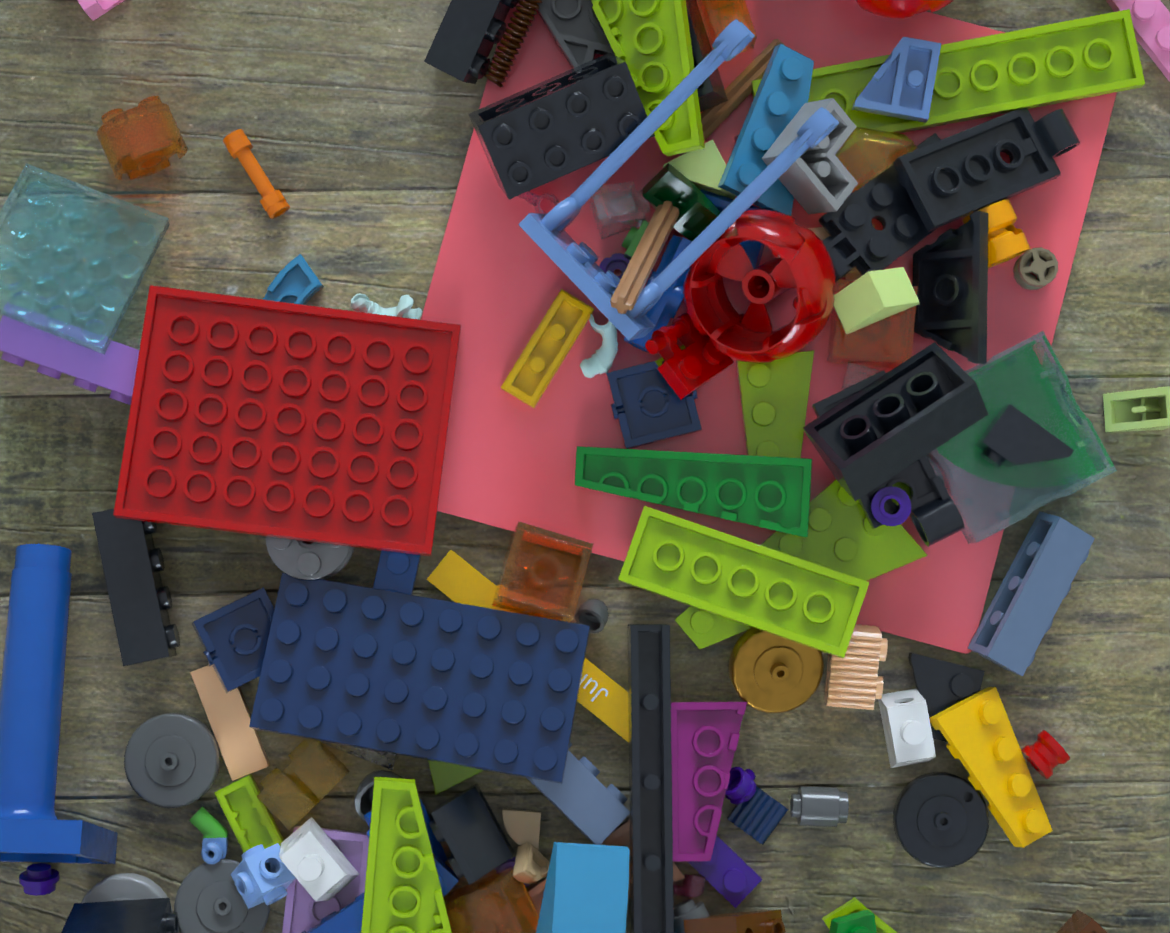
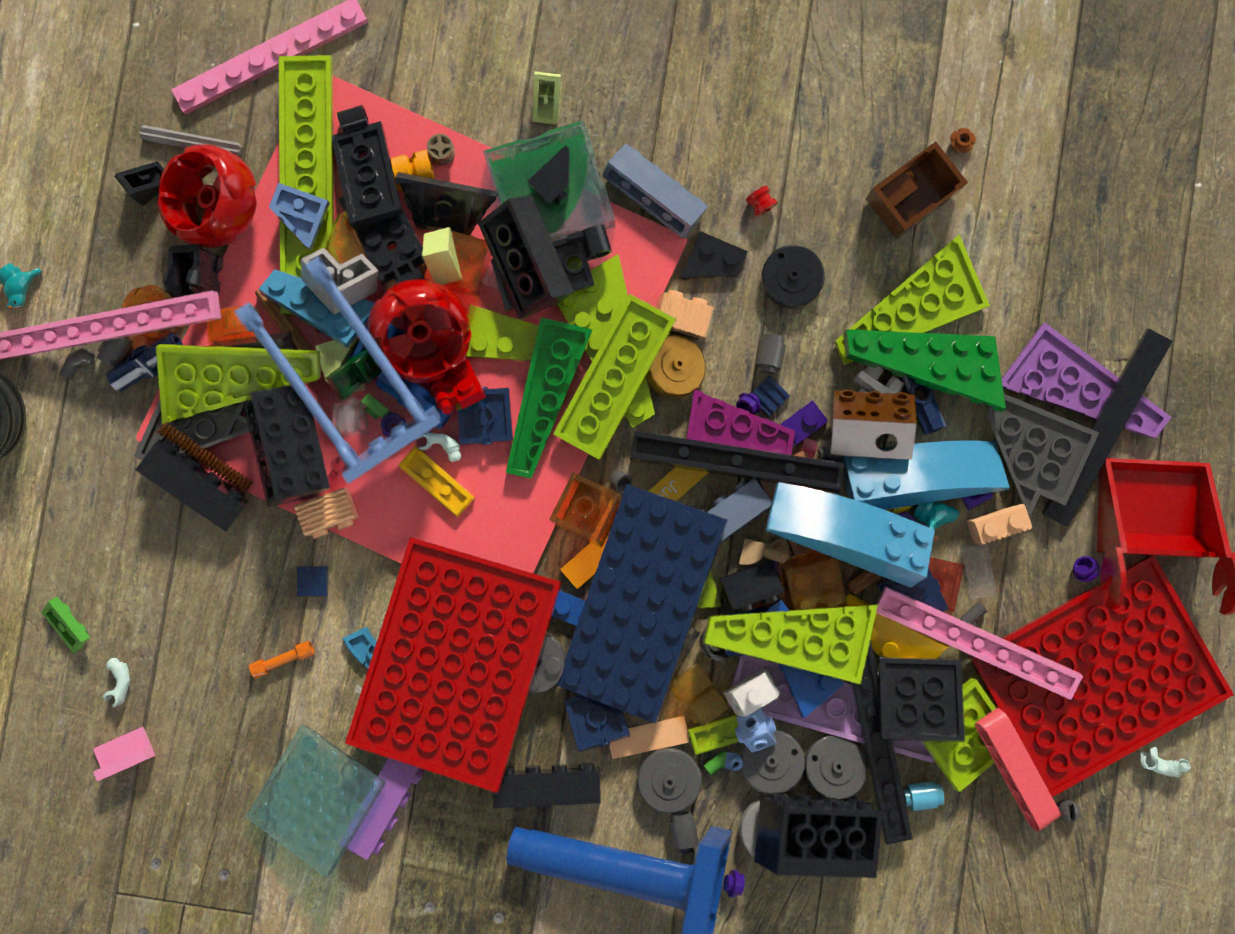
camera: 80 degrees left, 0 degrees up
(101, 793) = (683, 832): none -> dark grey brick
(140, 139) = (243, 734): clear orange brick -> none
(361, 303) = (383, 601): light aqua piece -> none
(375, 196) = (312, 581): none -> dark blue piece
(475, 199) = (326, 512): none -> light nougat brick
(644, 257) = (386, 403): medium nougat axle -> none
(881, 497) = (581, 279): dark purple plate -> none
(906, 728) = (729, 287): white torso -> none
(987, 747) = (749, 237): yellow wing -> none

